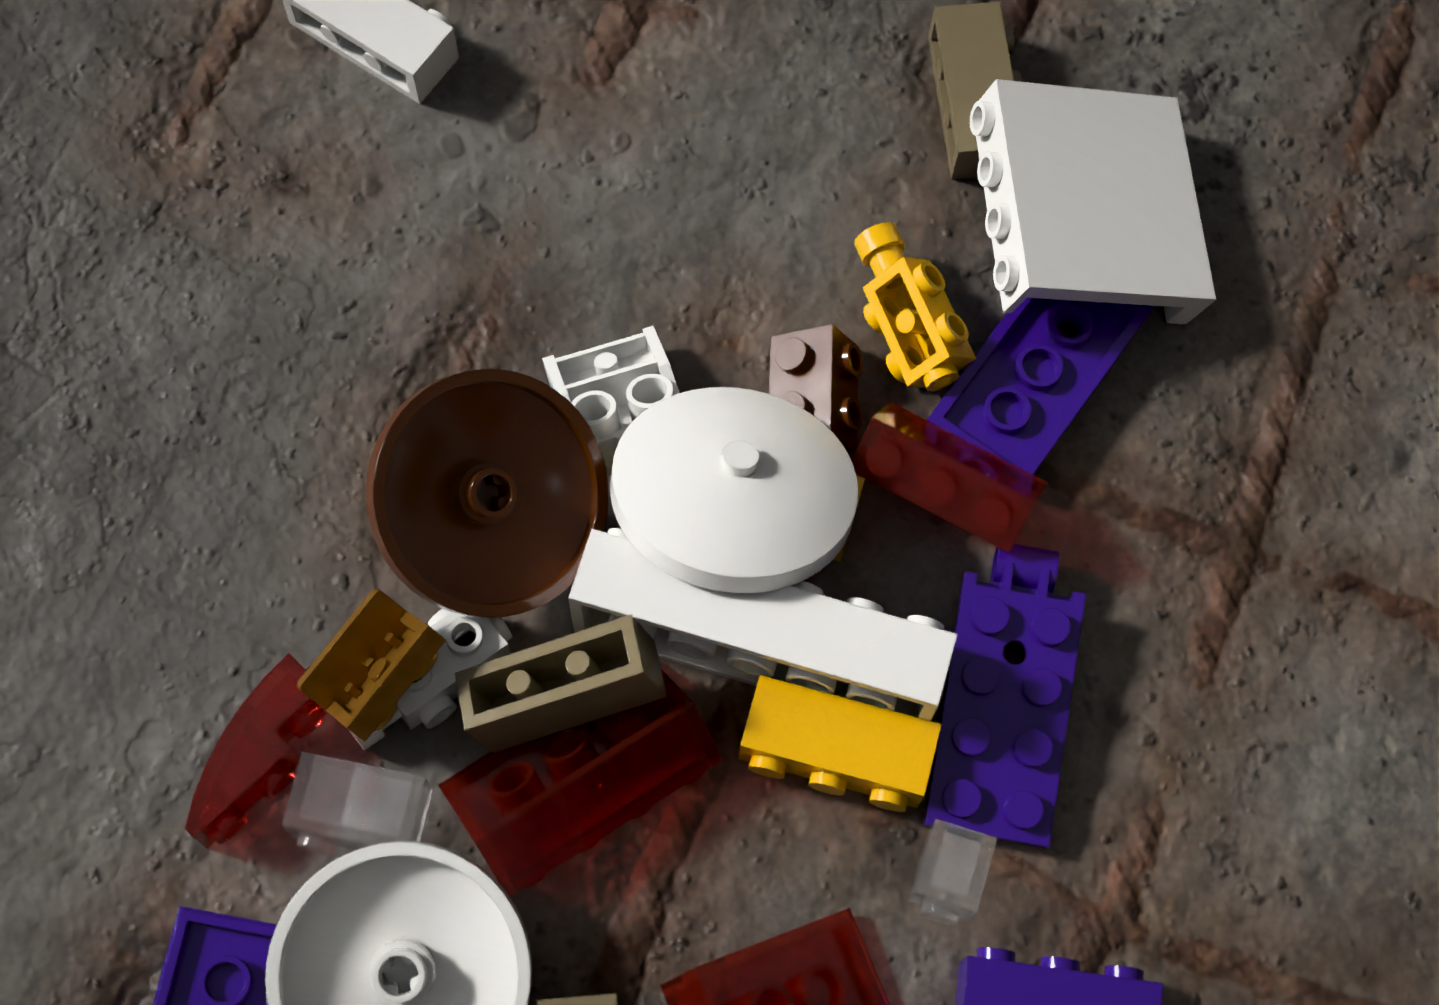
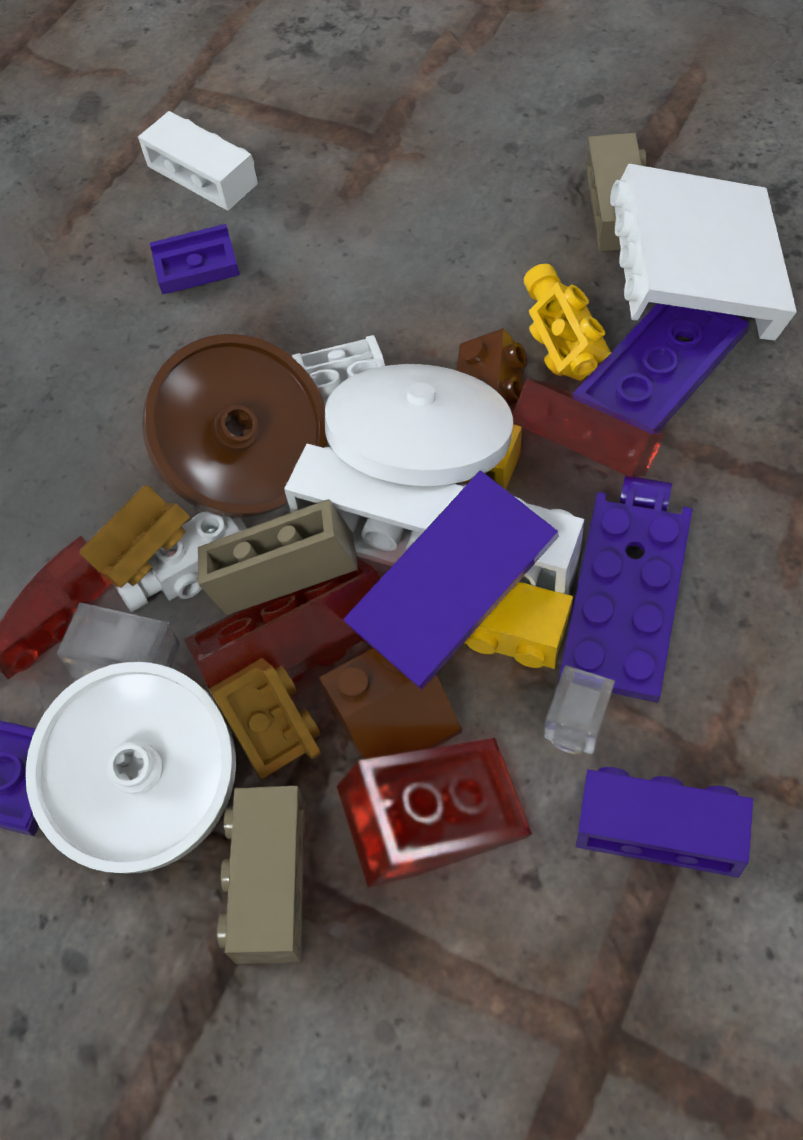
camera: 15 degrees right, 10 degrees down
(384, 195) = (194, 259): none -> dark purple plate
(564, 902) = (265, 718): none -> pearl gold bracket
(719, 873) = (385, 709): none -> reddish brown slope
(795, 723) = (451, 579): none -> dark purple tile

